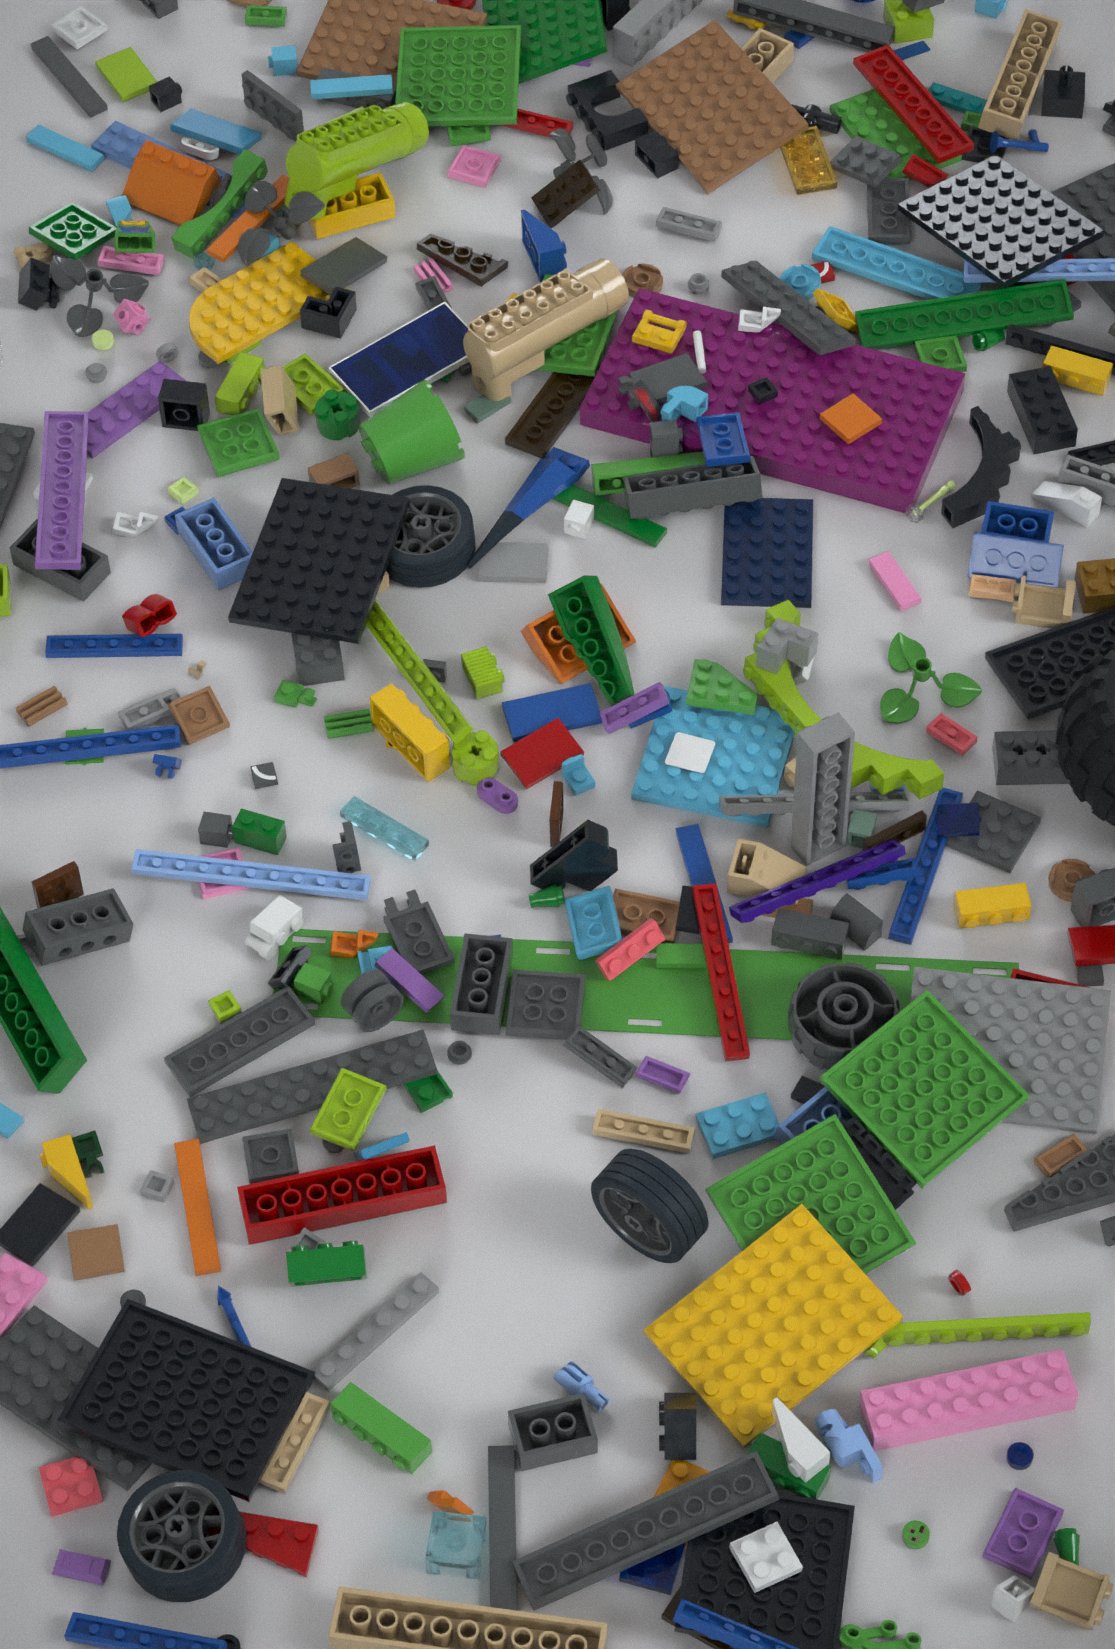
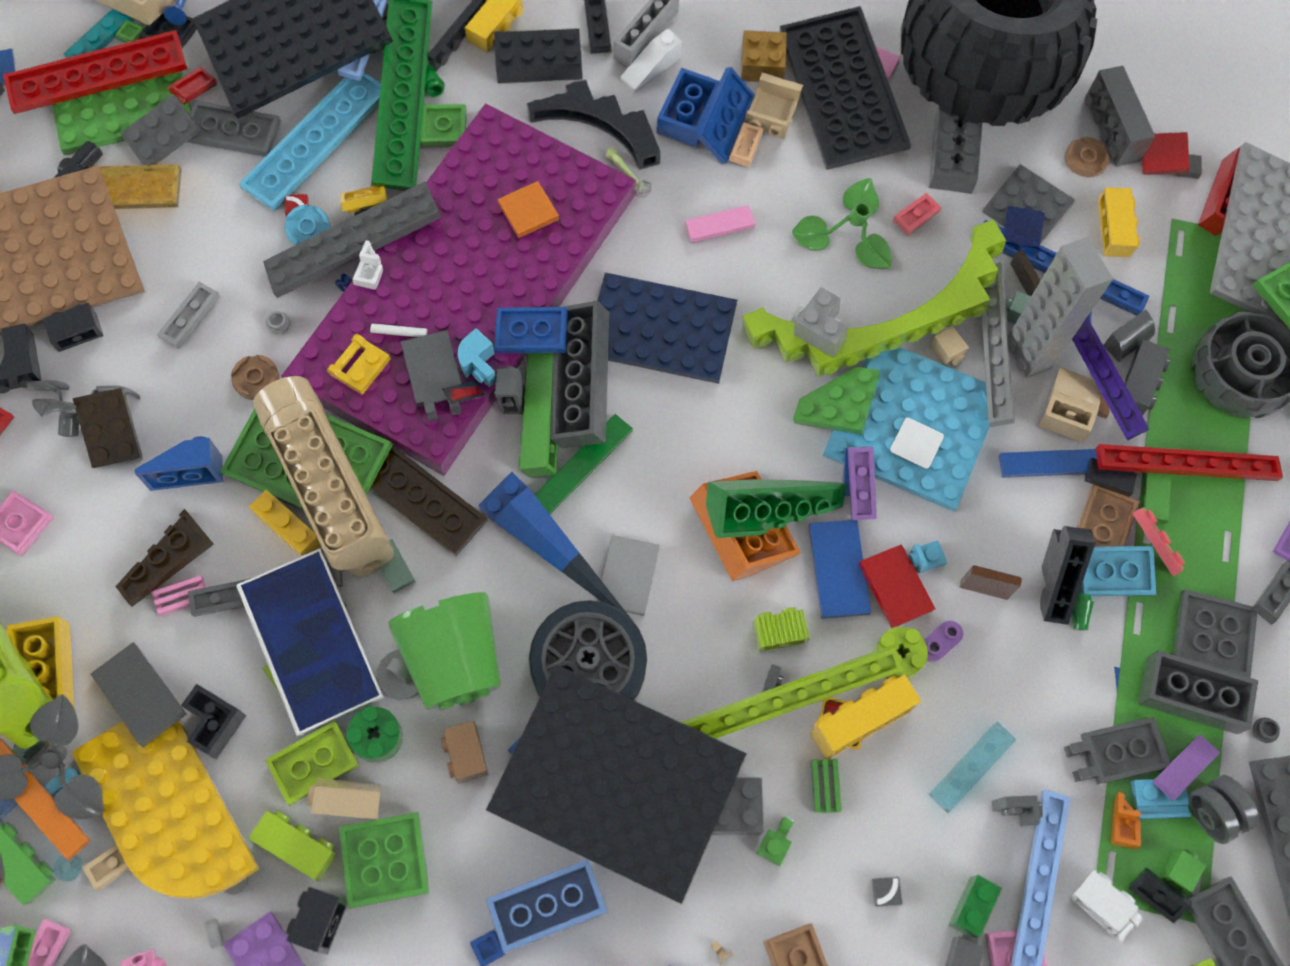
camera: 85 degrees left, 15 degrees up
(183, 490) = (440, 939): yellowish green tile -> none
(578, 519) = (587, 497): white brick -> none
(763, 390) = (473, 279): black plate -> none

